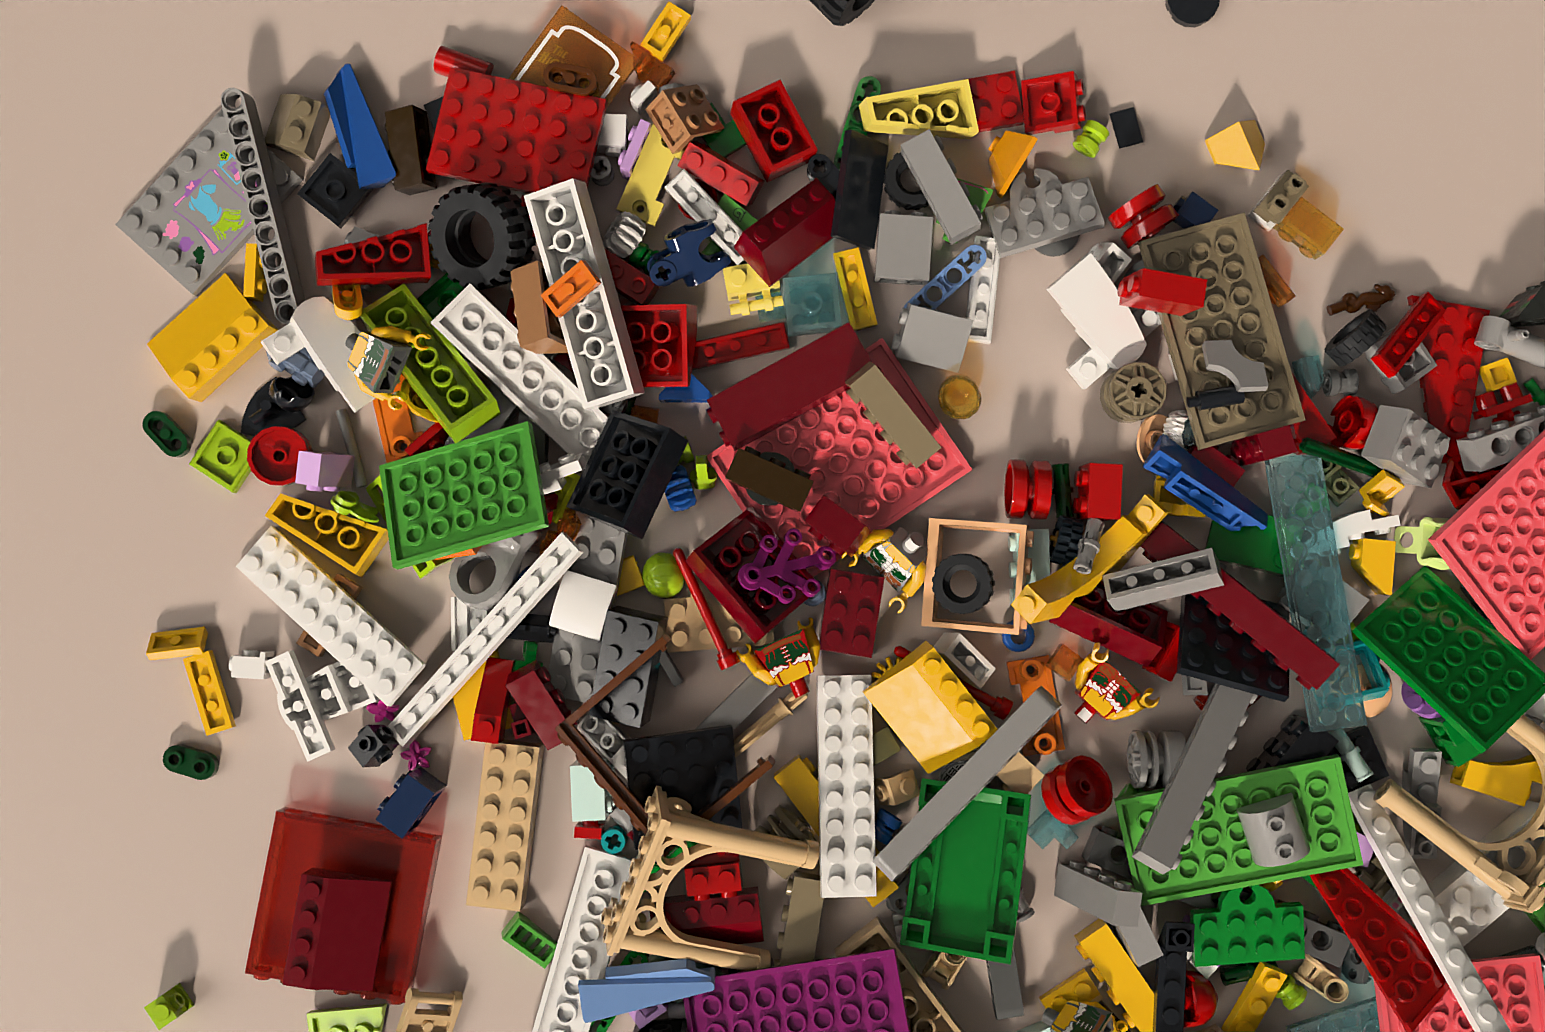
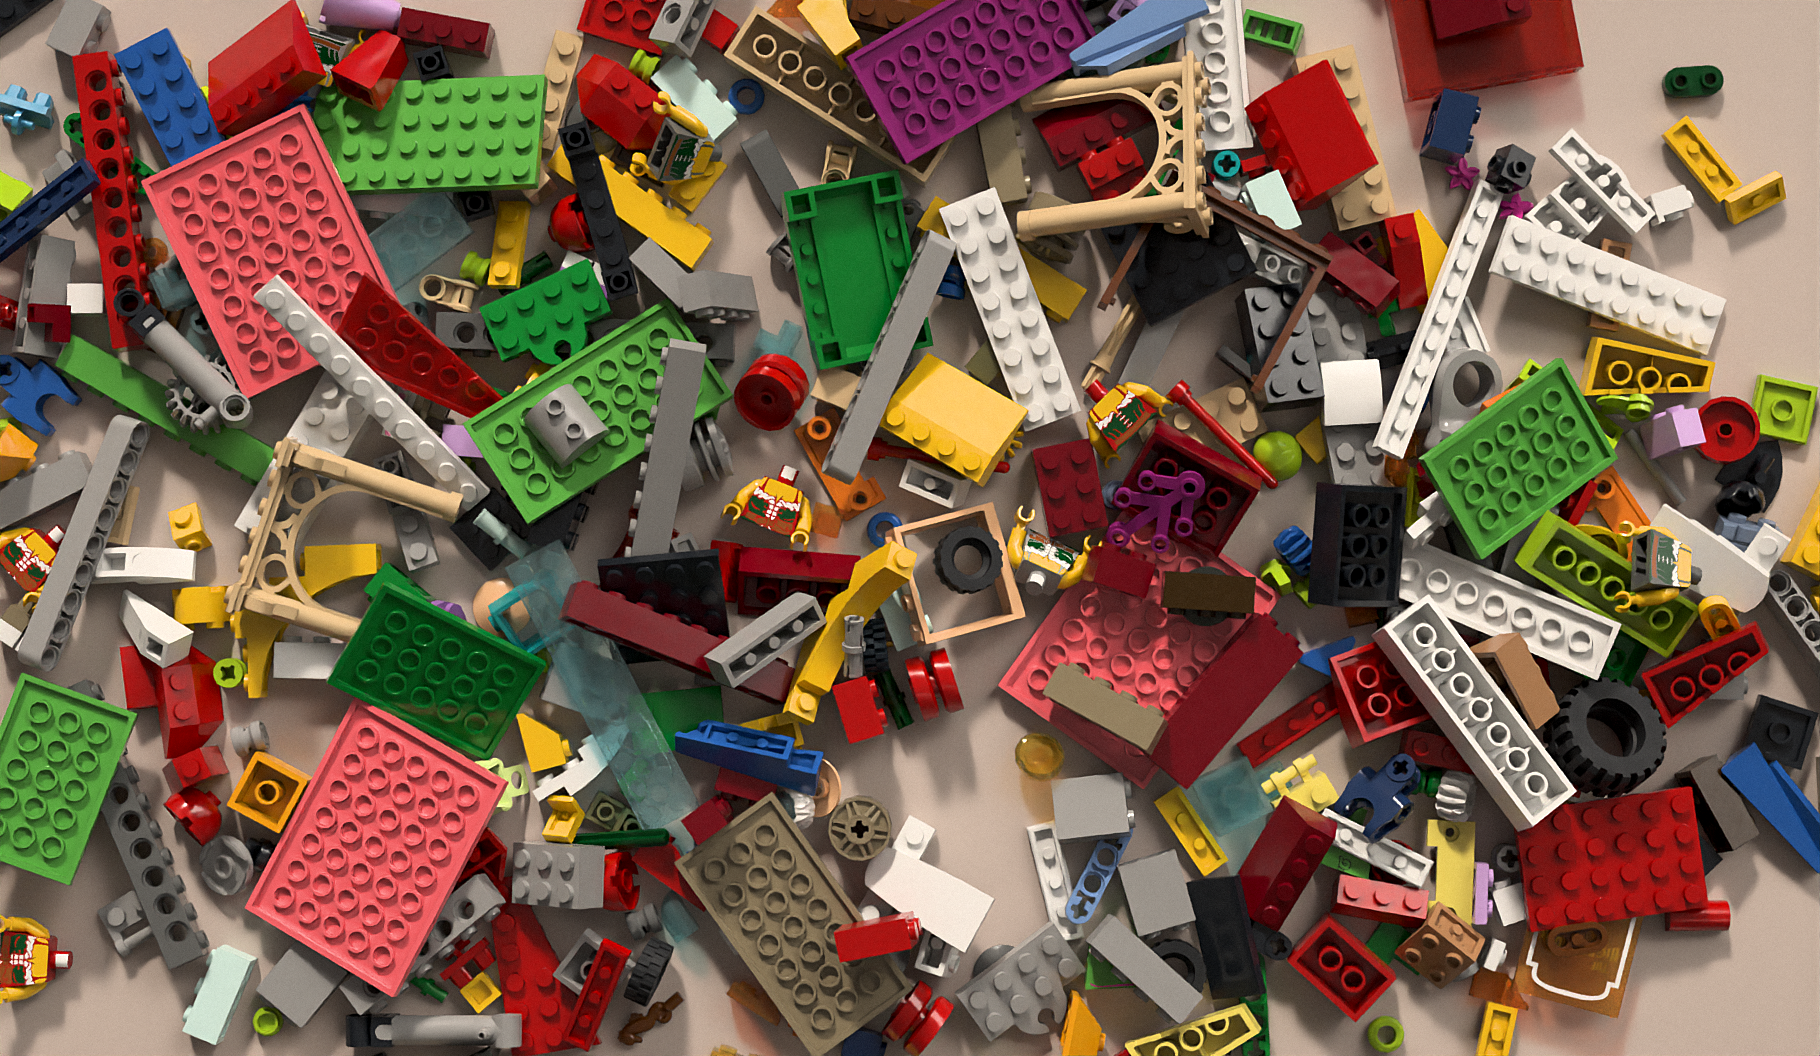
camera: 160 degrees right, 0 degrees up
(532, 839) = (1311, 136): none -> red slope
(571, 288) = (1490, 710): orange plate -> none
(756, 54) = (1373, 1030): none -> lime piece
(896, 788) = (954, 325): tan bracket -> none
(1215, 398) = (776, 850): black cylinder -> none
(1244, 373) = (758, 885): light grey tile -> none

